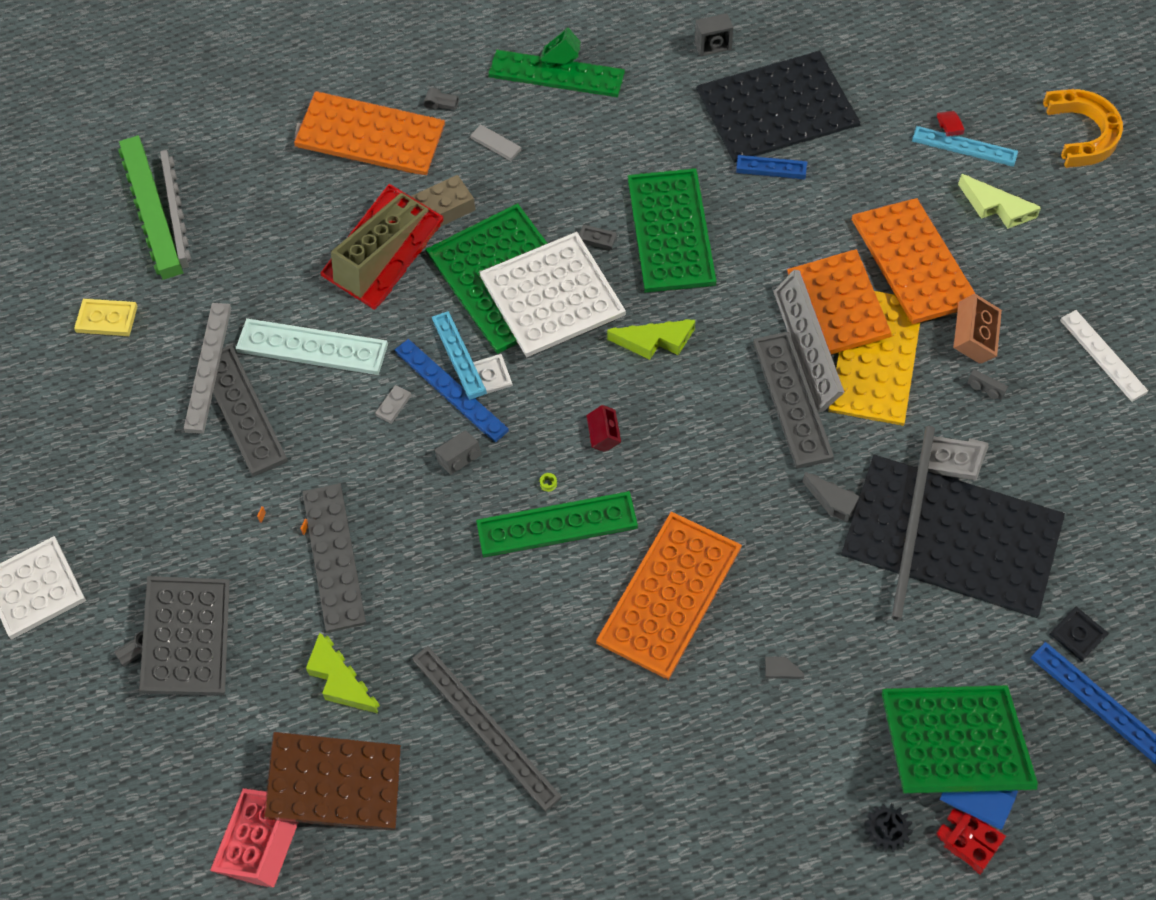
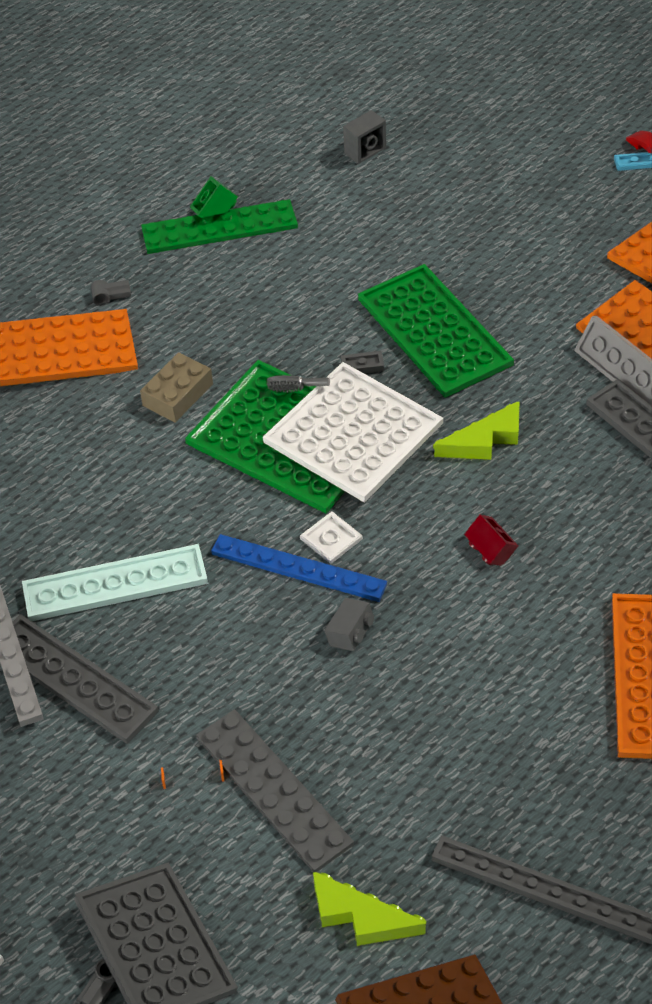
camera: 25 degrees left, 10 degrees down
(382, 246) = (136, 452): piece -> none
(393, 404) = (243, 606): light grey plate -> none
(459, 355) = (288, 529): medium azure tile -> none
(495, 142) = (195, 312): light grey tile -> none
(529, 235) = (291, 383): none -> dark grey piece
(551, 477) = (464, 623): lime bush -> none
(556, 524) = (498, 655): green plate -> none
(771, 167) = (498, 238): blue plate -> none
(777, 105) = (466, 183): black plate -> none

